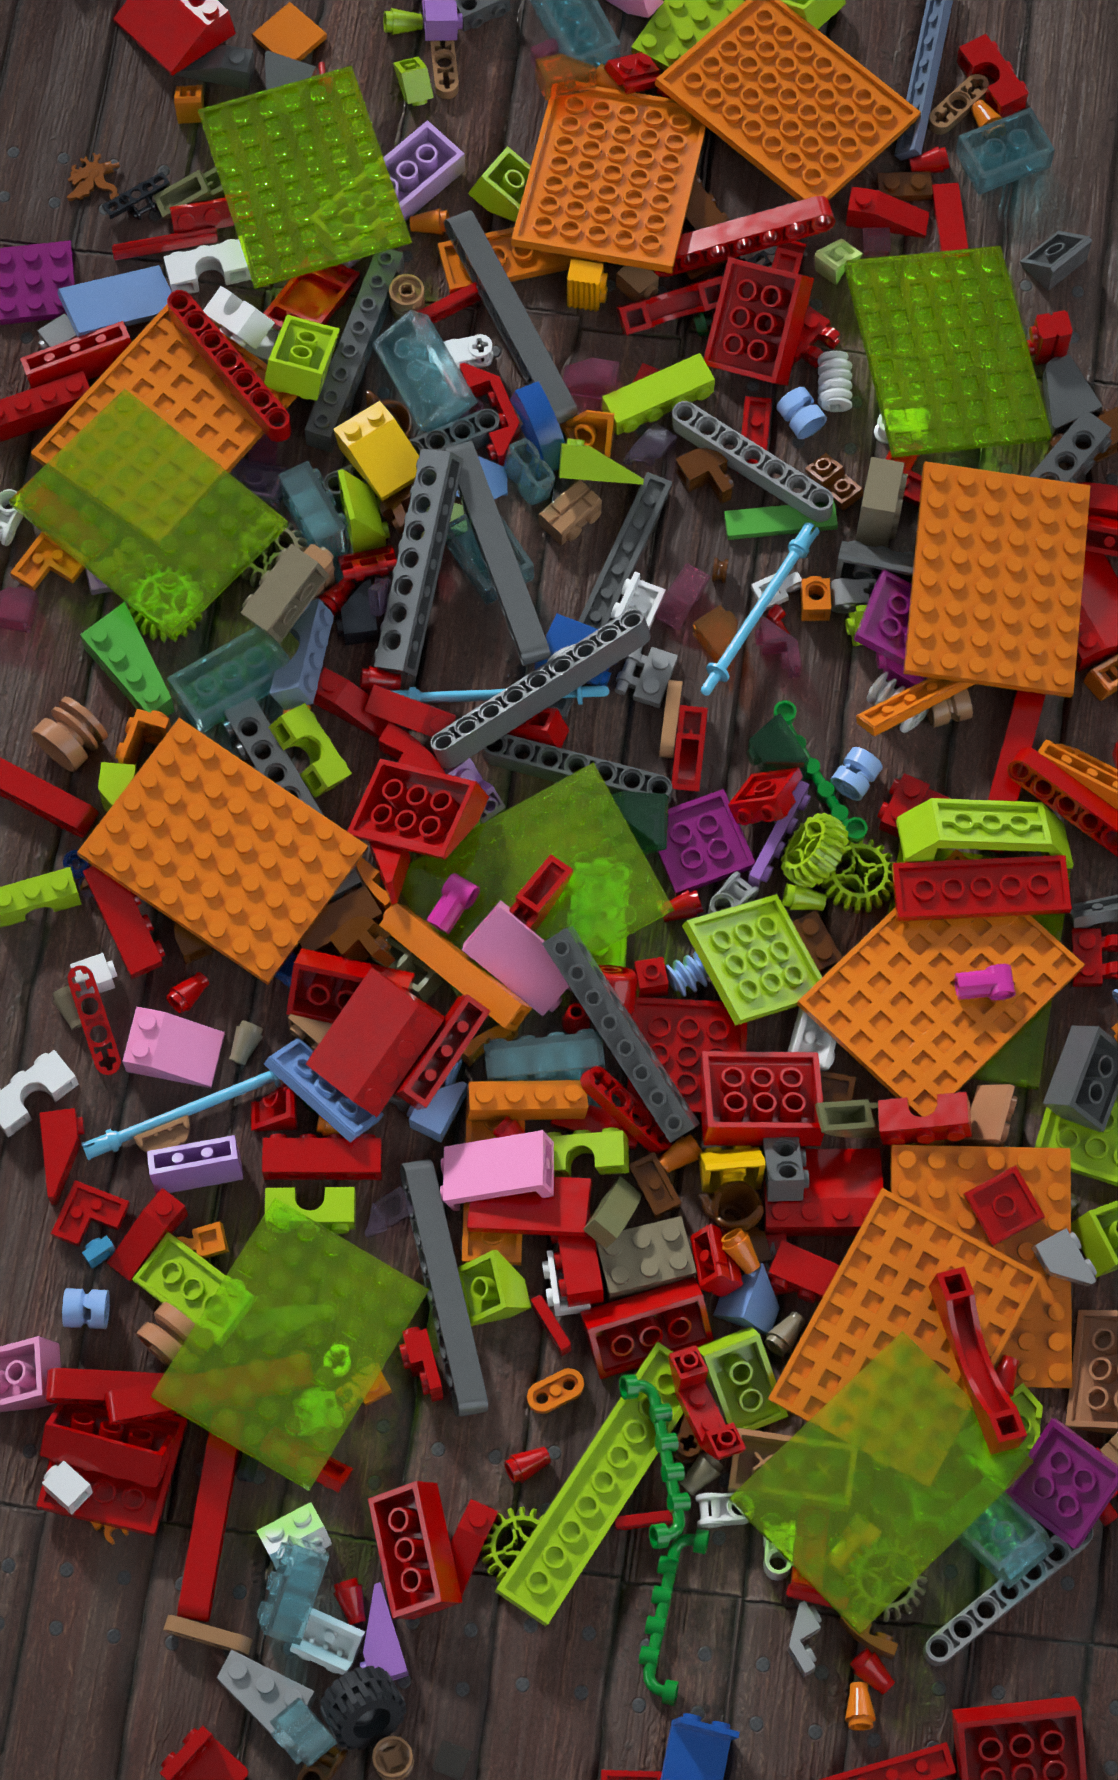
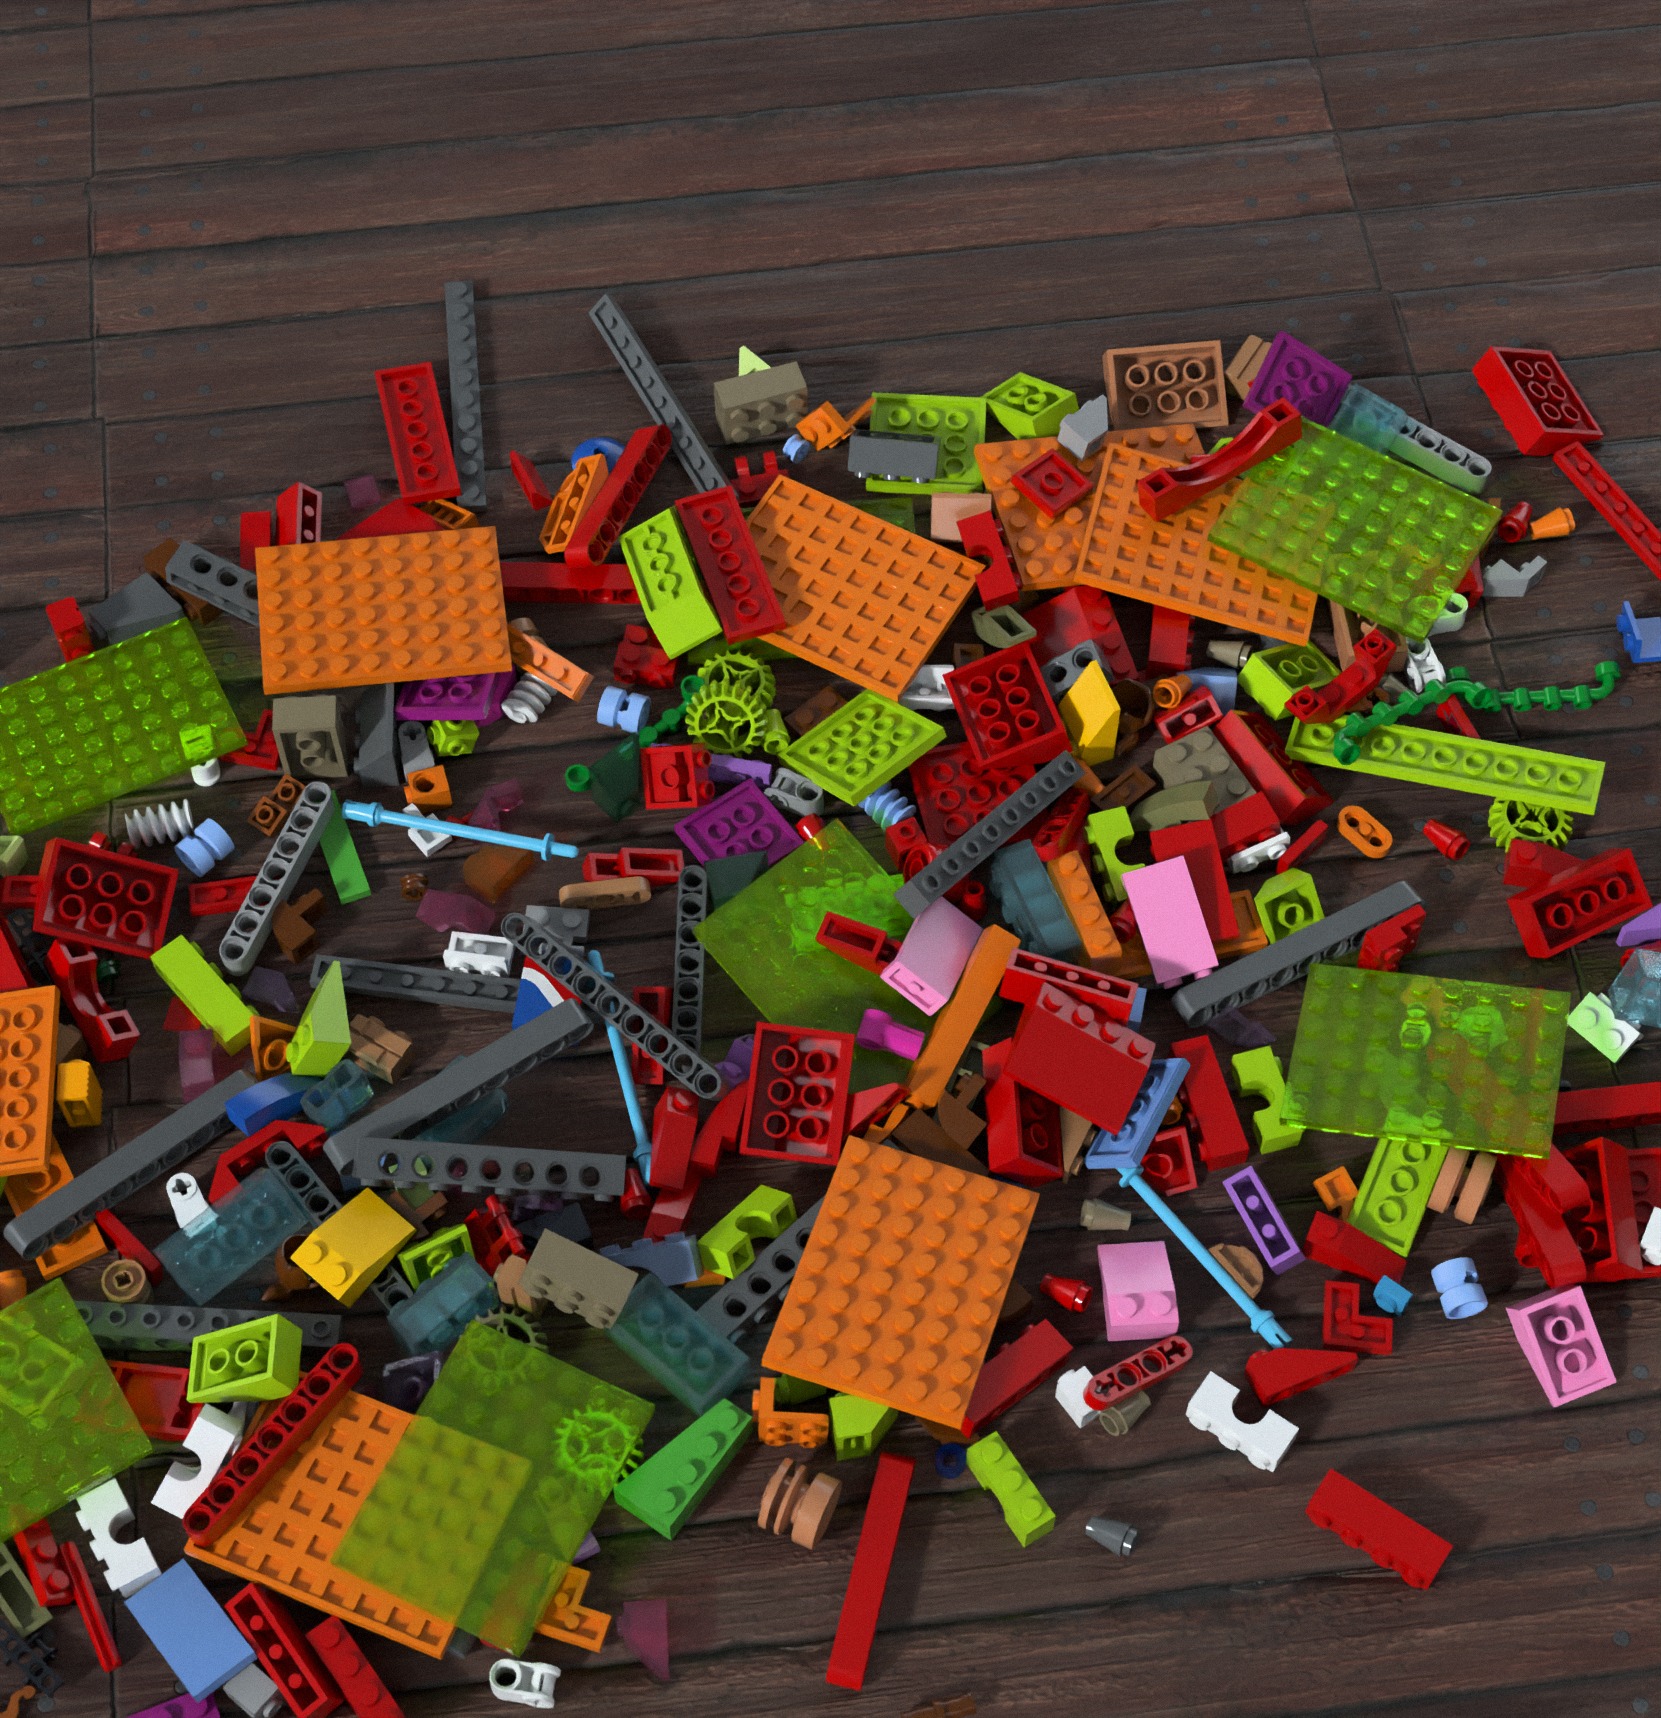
camera: 105 degrees left, 10 degrees down
(992, 982) = (829, 534): dark pink piece -> none

